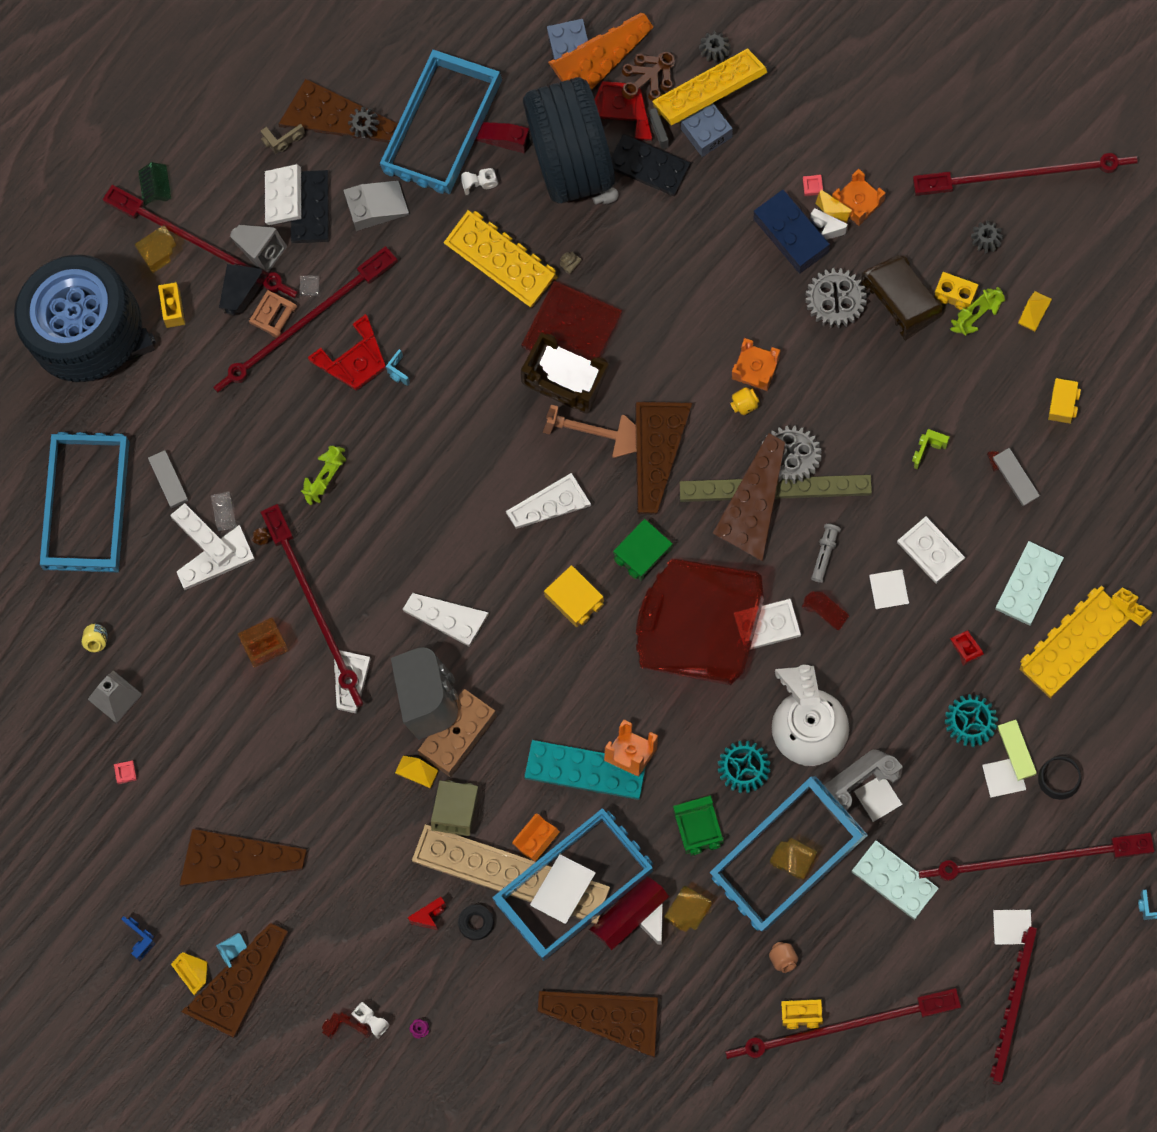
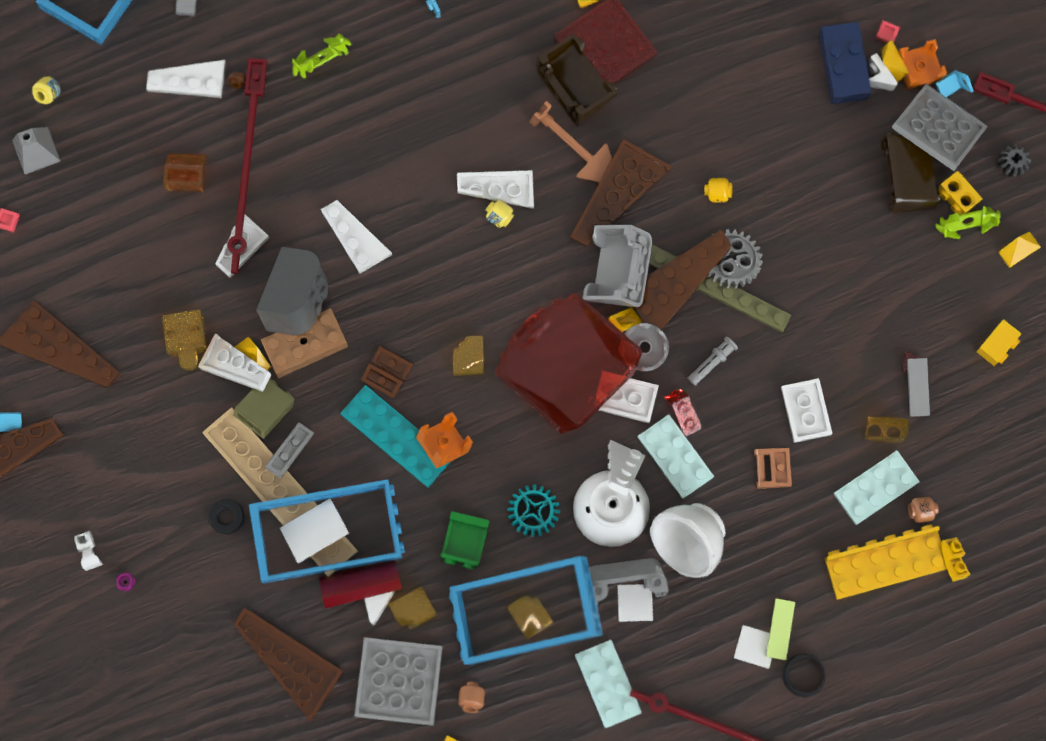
camera: 20 degrees right, 5 degrees up
(202, 535) = (187, 51): white plate -> none
(223, 511) = (218, 41): clear plate -> none
(332, 1024) = (53, 536): clear red bracket -> none
(348, 785) = (183, 337): none -> clear yellow brick
(402, 786) = (232, 364): none -> white wing
(423, 916) = (185, 486): red slope -> none
(498, 833) = (289, 450): none -> light grey tile
(535, 837) = (318, 471): orange bracket -> none
(544, 718) = (387, 371): none -> reddish brown slope
(564, 526) = (499, 213): none -> light yellow head
(574, 596) = (473, 280): yellow brick -> none
(610, 665) = (469, 358): none -> clear yellow piece
(642, 550) = (554, 271): green panel -> none
(697, 512) = (621, 265): none -> light grey windscreen
(711, 979) = (398, 681): none -> light grey plate
(729, 557) = (625, 319): none -> yellow slope
(755, 365) = (746, 164): orange panel -> none
(769, 561) = (658, 342): none -> light grey plate
(818, 299) = (866, 149): light grey gear -> none
(840, 652) = (675, 456): none -> light aqua plate
(889, 589) = (750, 424): white sticker -> none
(894, 714) = (689, 539): none -> white piece
(895, 198) = (953, 82): none -> medium azure bracket
(906, 242) = (939, 127): none -> light grey plate
(934, 438) = (866, 315): lime bracket -> none
(936, 612) = (779, 468): none -> nougat plate
(966, 647) = (788, 514): red slope -> none
(977, 725) = (750, 573): teal gear -> none
(1009, 519) = (890, 422): none -> clear yellow piece
(1080, 579) = (923, 509): none -> nougat head

